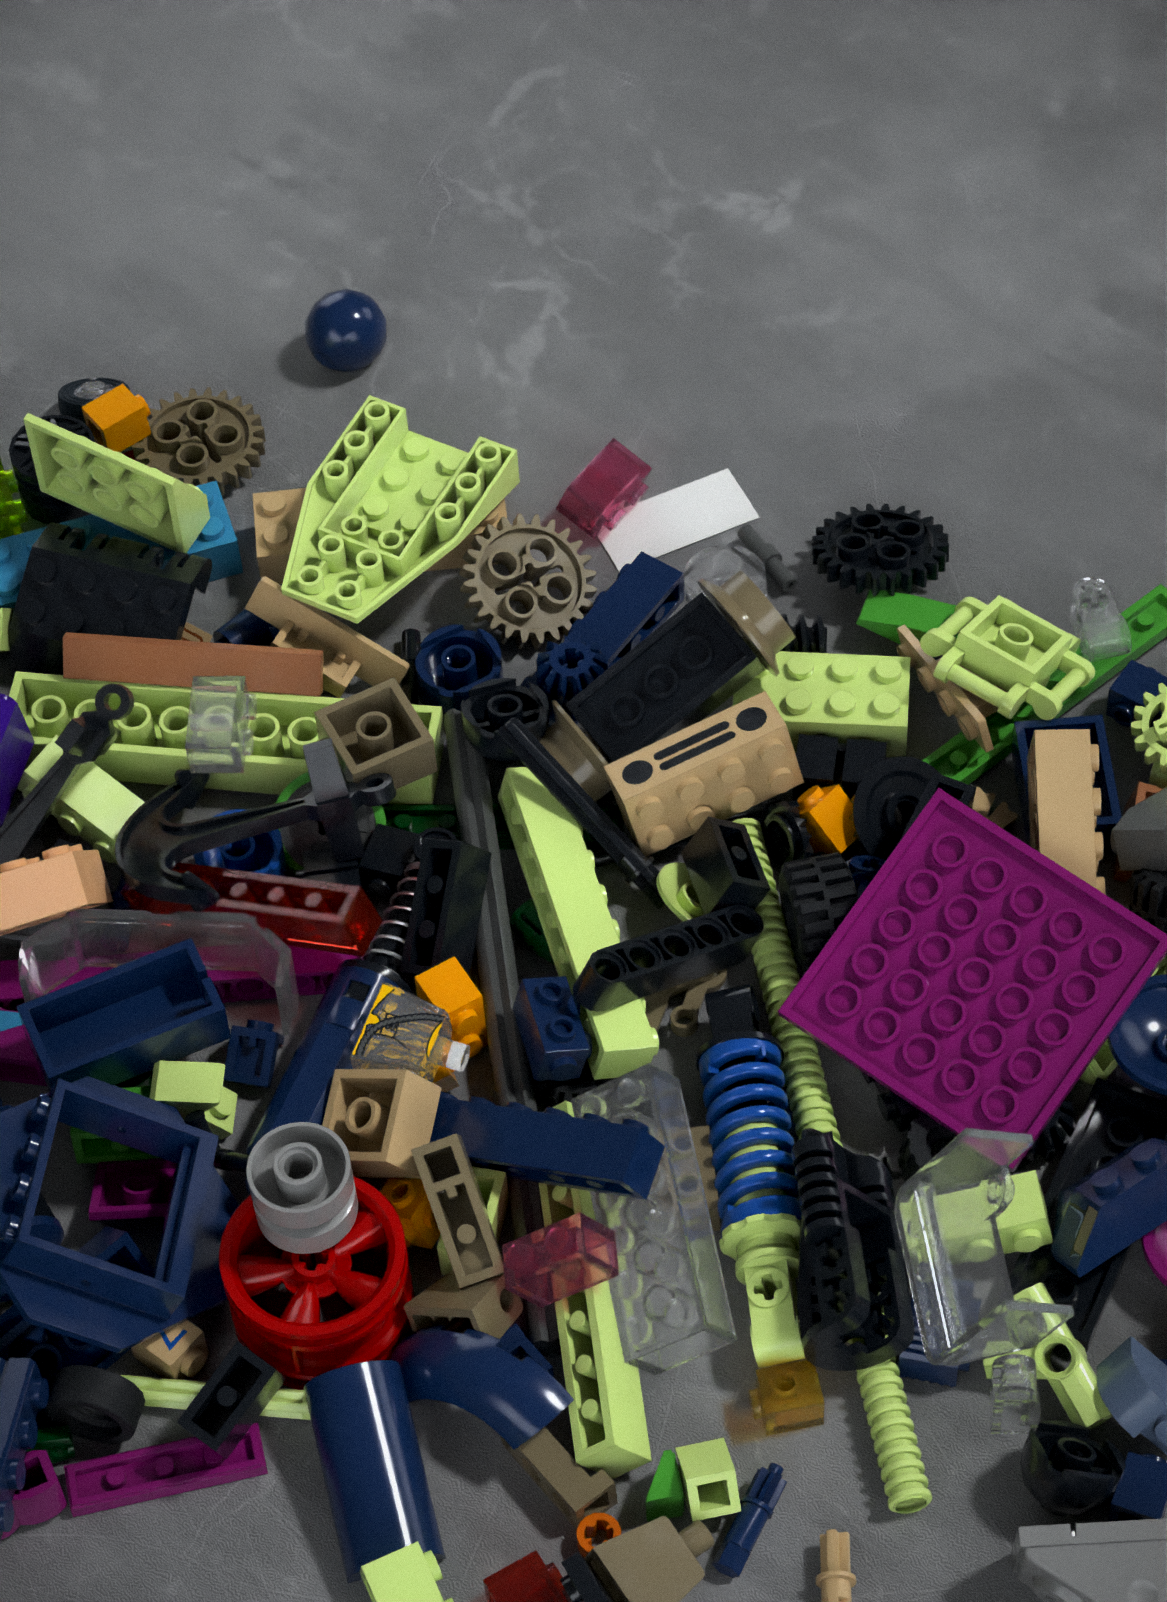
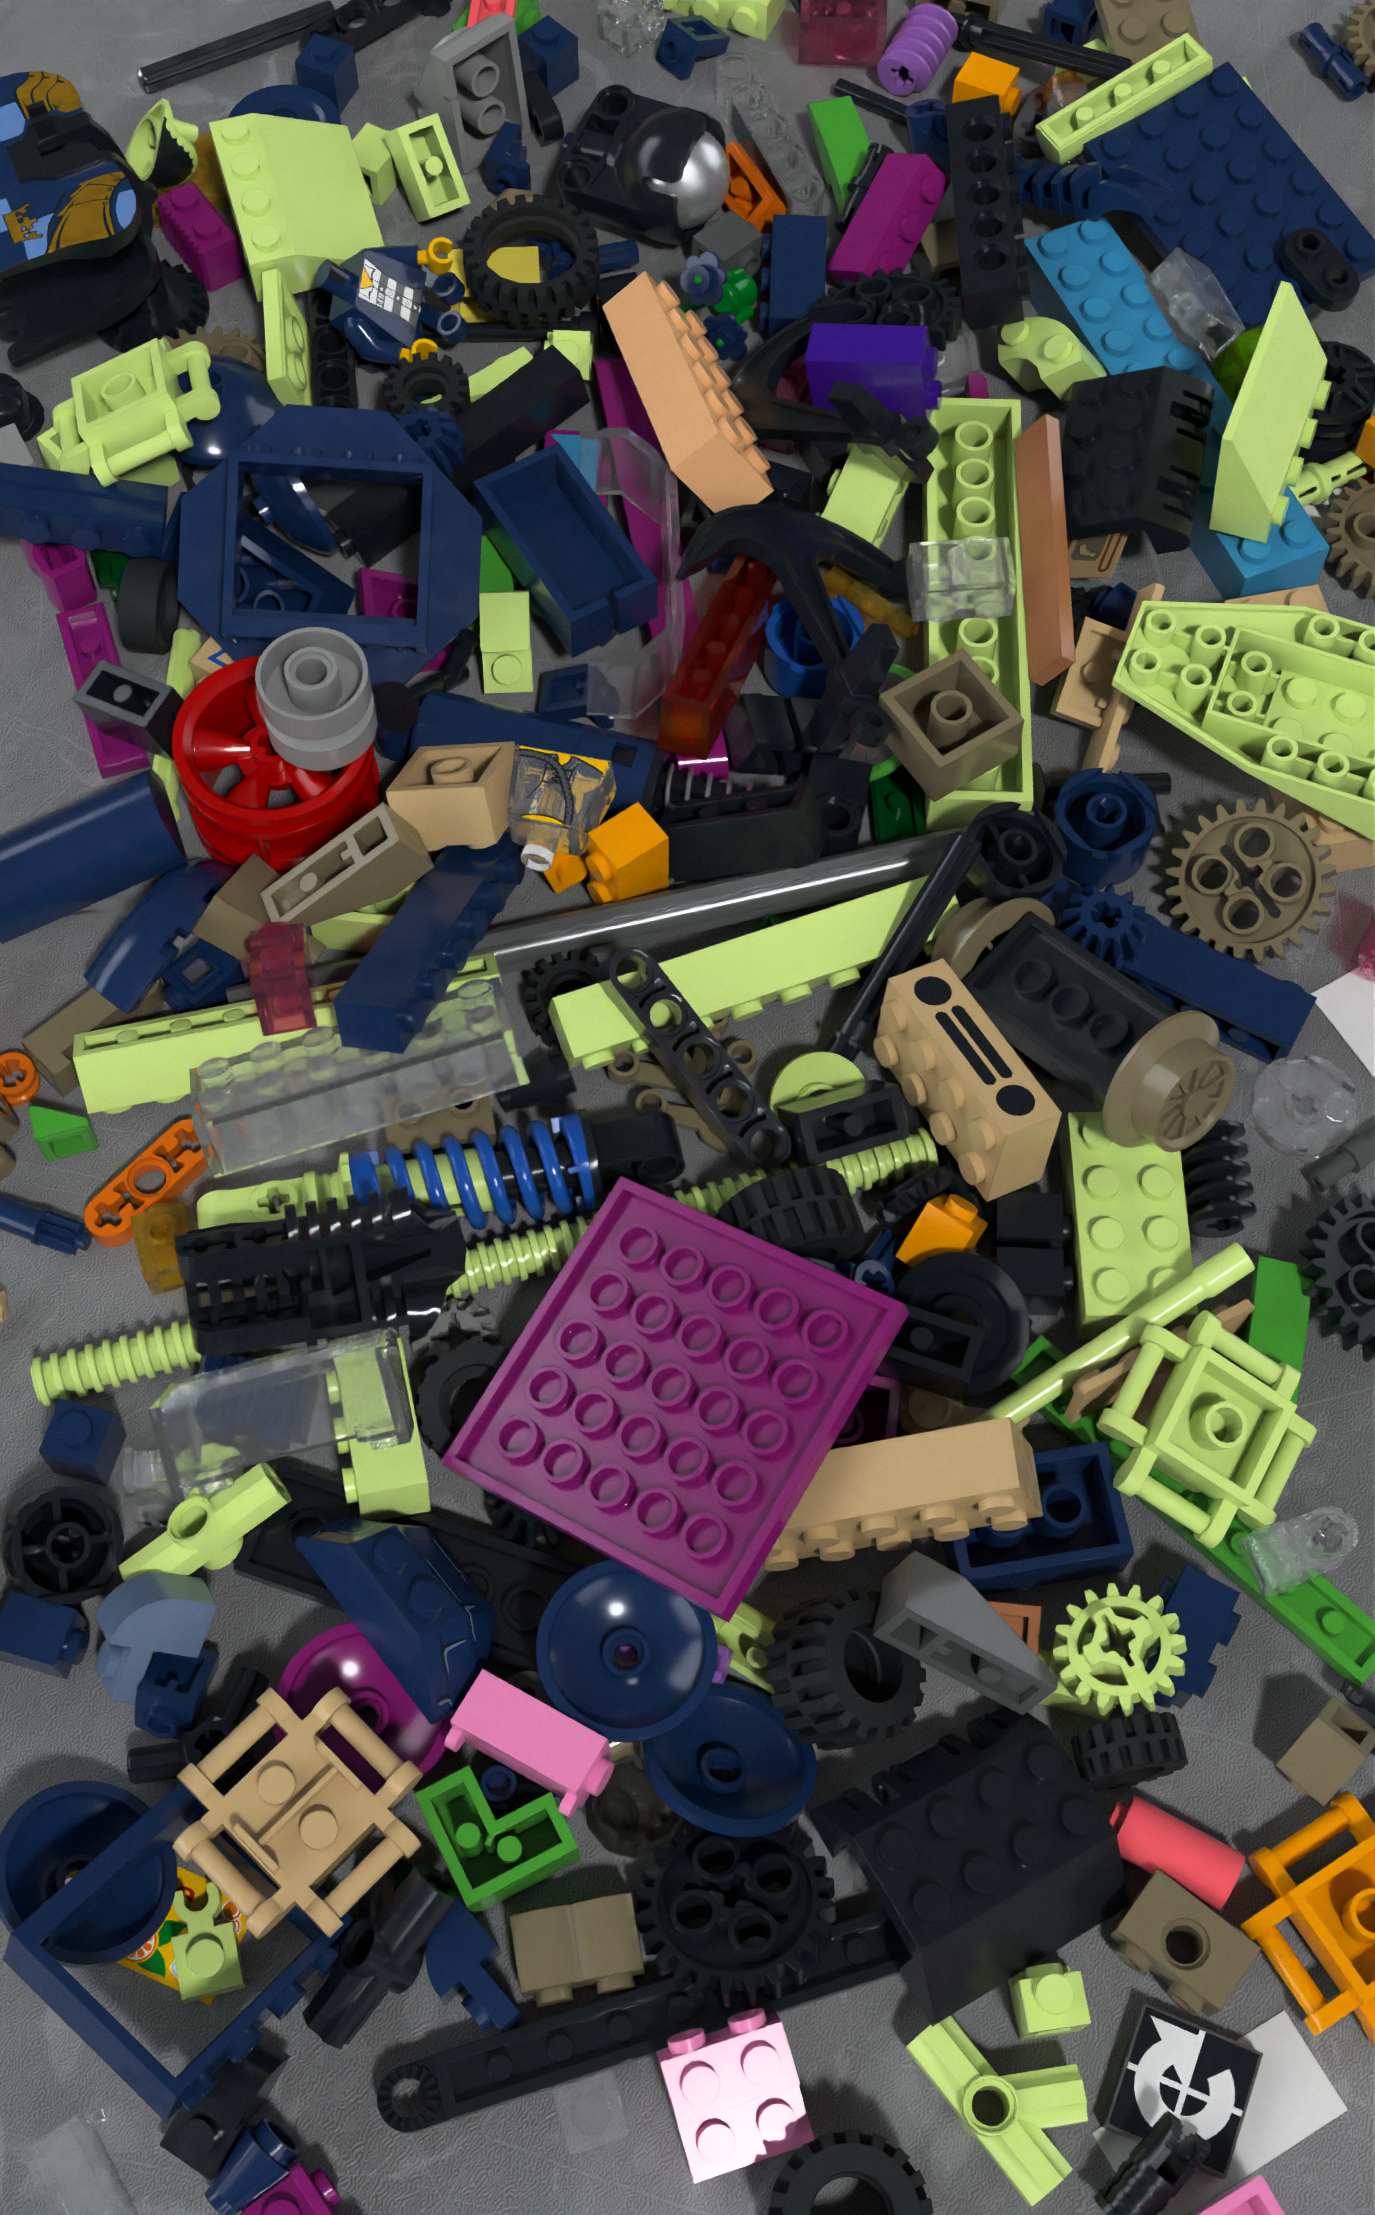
camera: 80 degrees right, 10 degrees up
(217, 801) = (872, 603): none -> clear yellow tile
(551, 1028) = (575, 953): dark blue brick -> none
(708, 1479) = (61, 1168): yellowish green brick -> none
(714, 1397) = (111, 1198): none -> orange beam
(895, 641) = (1203, 1283): none -> yellowish green piece
(971, 1460) = (82, 1442): none -> dark blue brick

